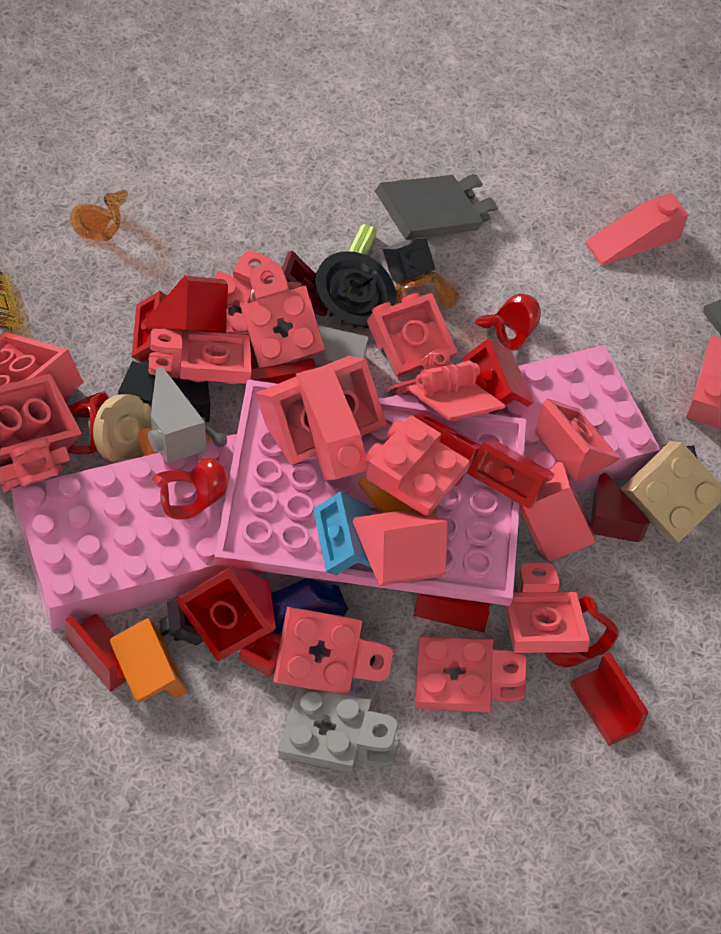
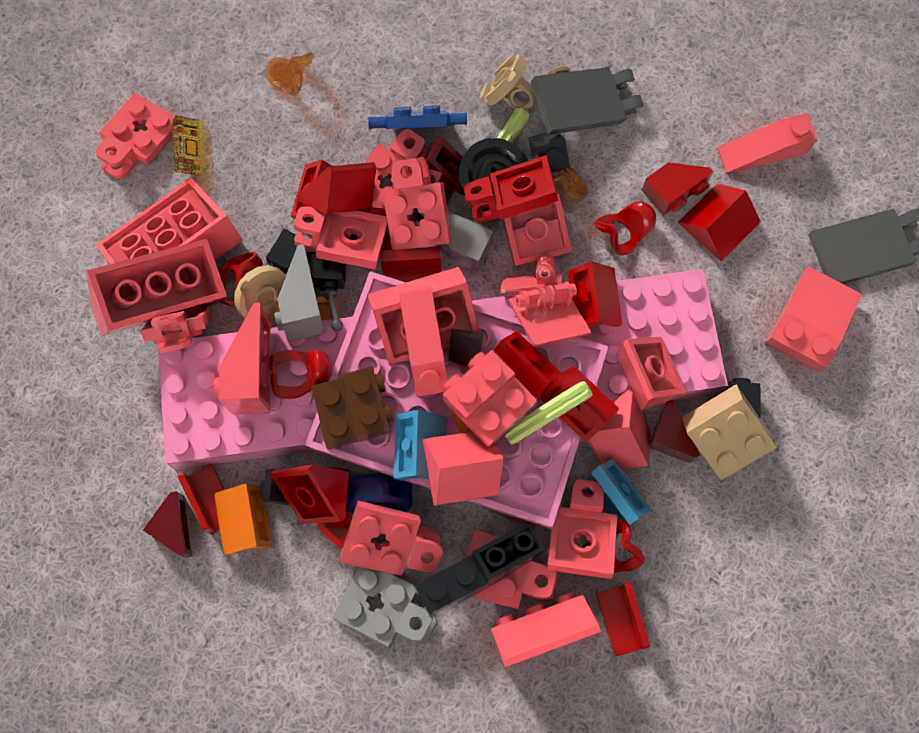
camera: 20 degrees right, 20 degrees up
(62, 684) = (171, 526): none -> dark red slope
(135, 490) = (245, 370): none -> coral slope
(263, 508) = (352, 408): none -> reddish brown plate
(272, 238) = (430, 117): none -> blue plate
(347, 199) = (507, 83): none -> tan tile
(374, 429) = (464, 346): none -> black slope
(382, 292) = (504, 191): none -> red plate
(444, 663) = (480, 569): none -> black slope
(481, 478) = (548, 412): none -> yellowish green axle
(526, 722) = (543, 629): none -> coral slope
(552, 276) = (674, 183): none -> red slope
(572, 572) = (619, 493): none -> dark azure panel
(609, 306) = (721, 219): none -> red slope

